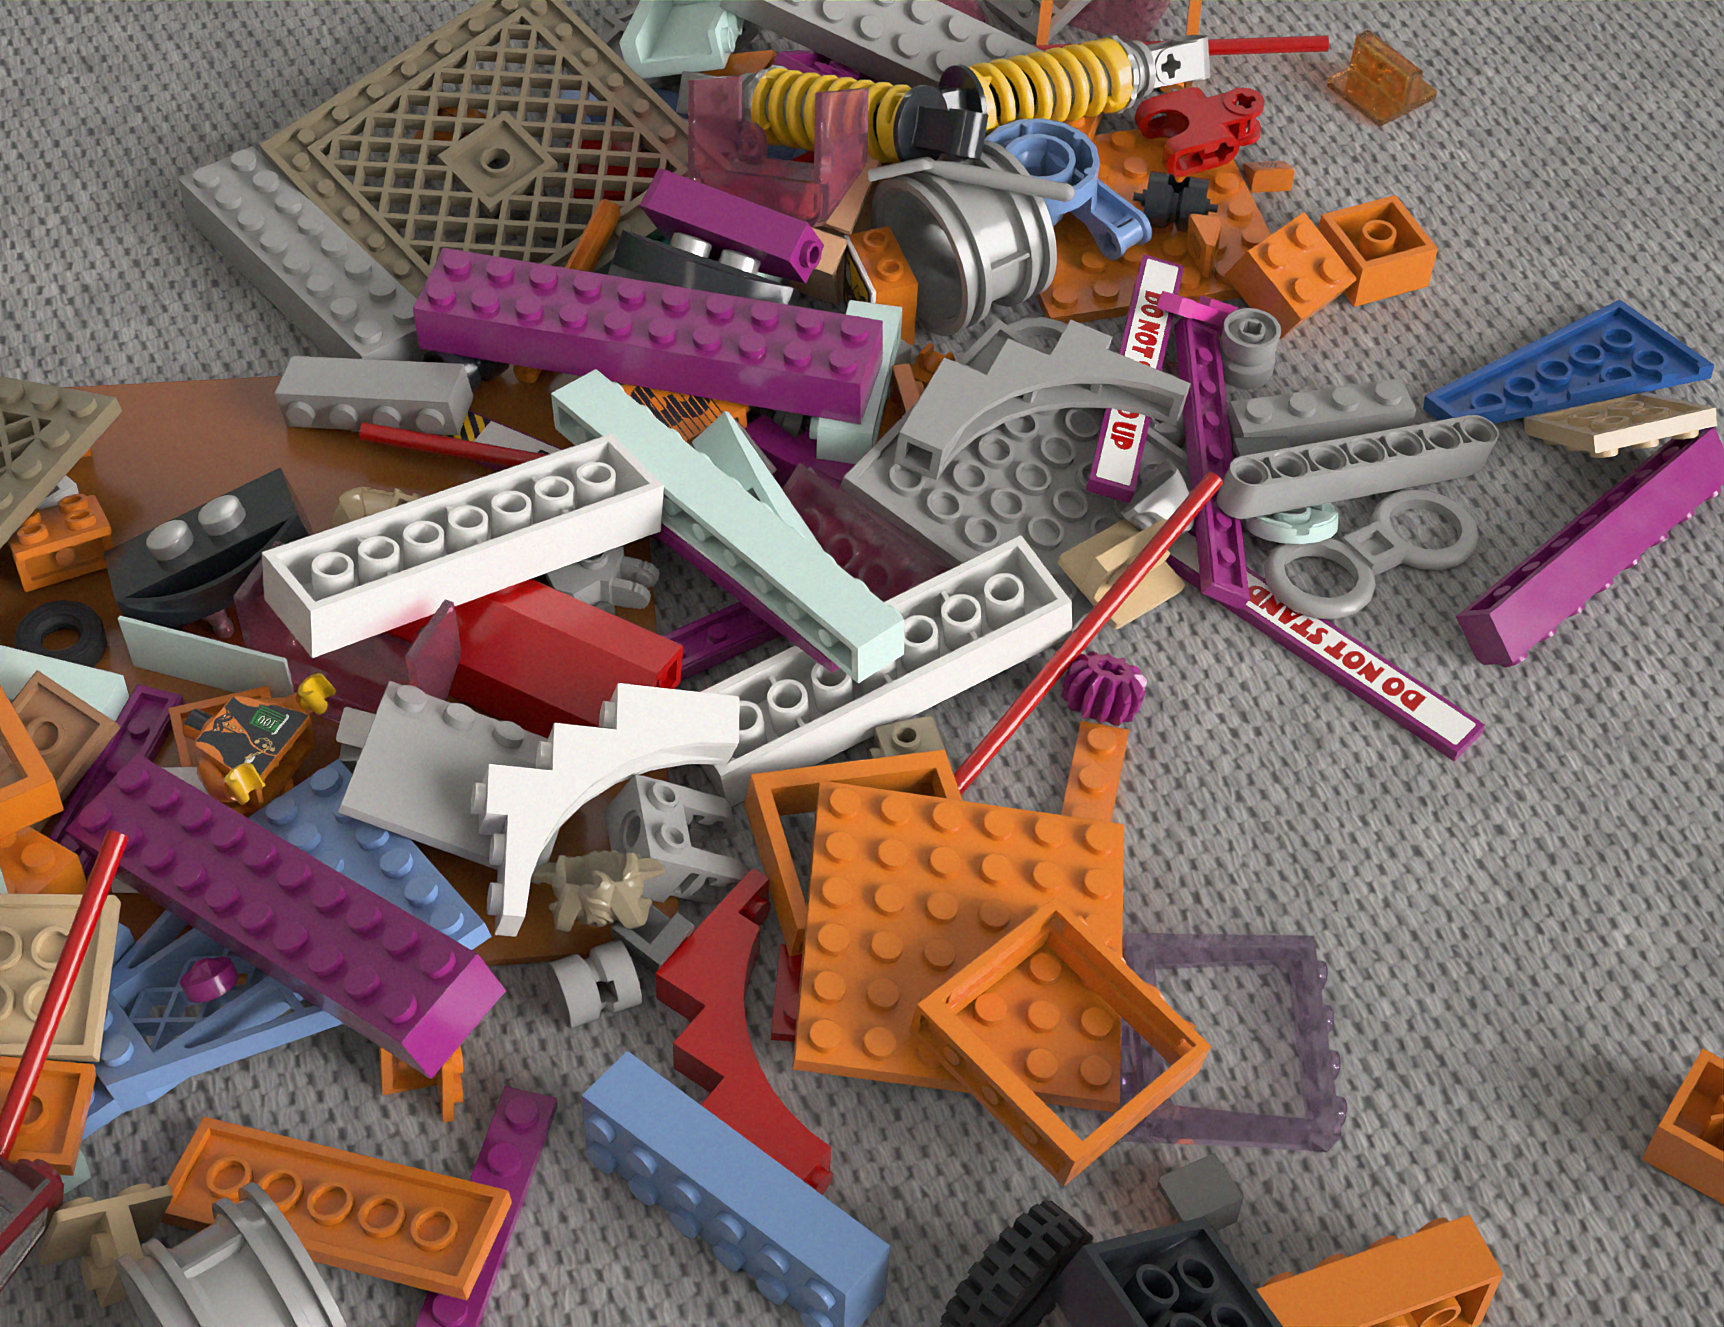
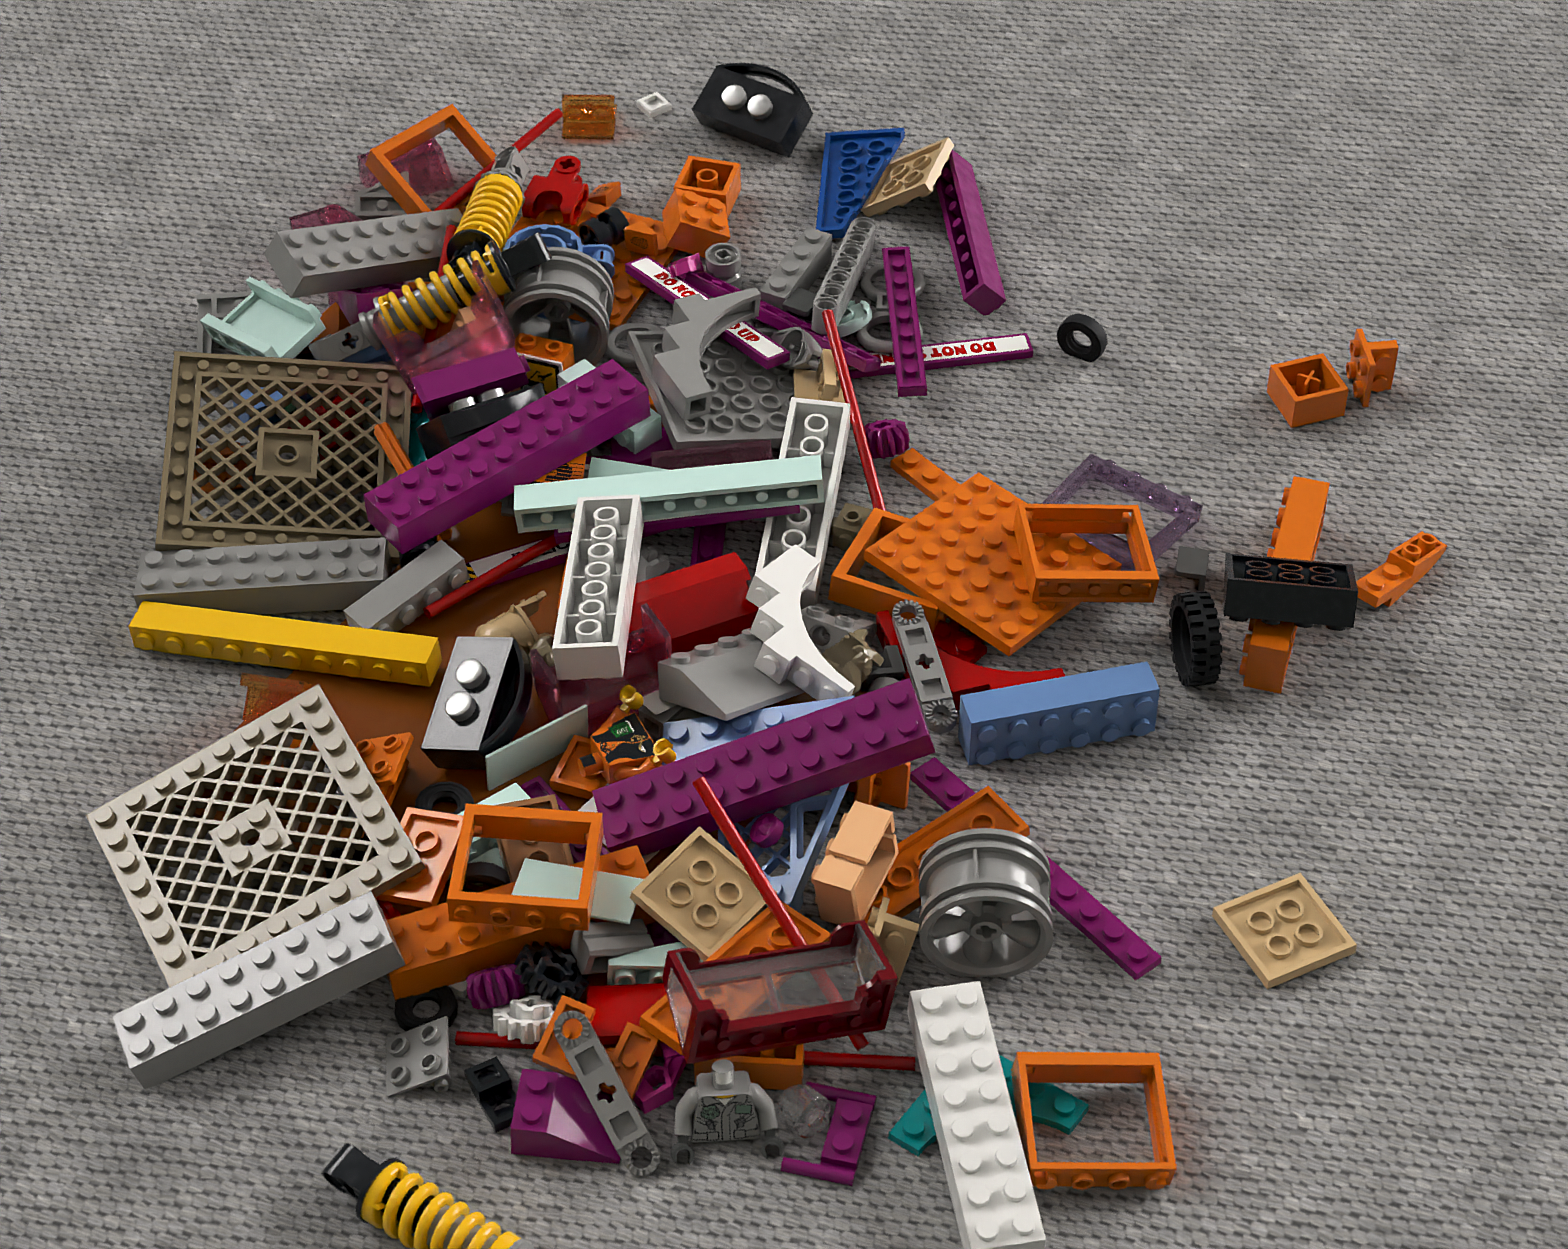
camera: 50 degrees left, 5 degrees down
(123, 374) = (268, 693): none -> clear orange bracket
(216, 344) = (286, 643): none -> yellow brick
(216, 1118) = (855, 864): none -> light nougat piece
(709, 950) = (931, 683): none -> light grey piece
(978, 176) = (528, 283): light grey piece -> none
(1338, 579) = (904, 322): none -> magenta tile
(1481, 124) = (653, 105): none -> white tile
(1529, 789) = (1090, 328): none -> black tyre
(1563, 203) = (753, 108): none -> black piece

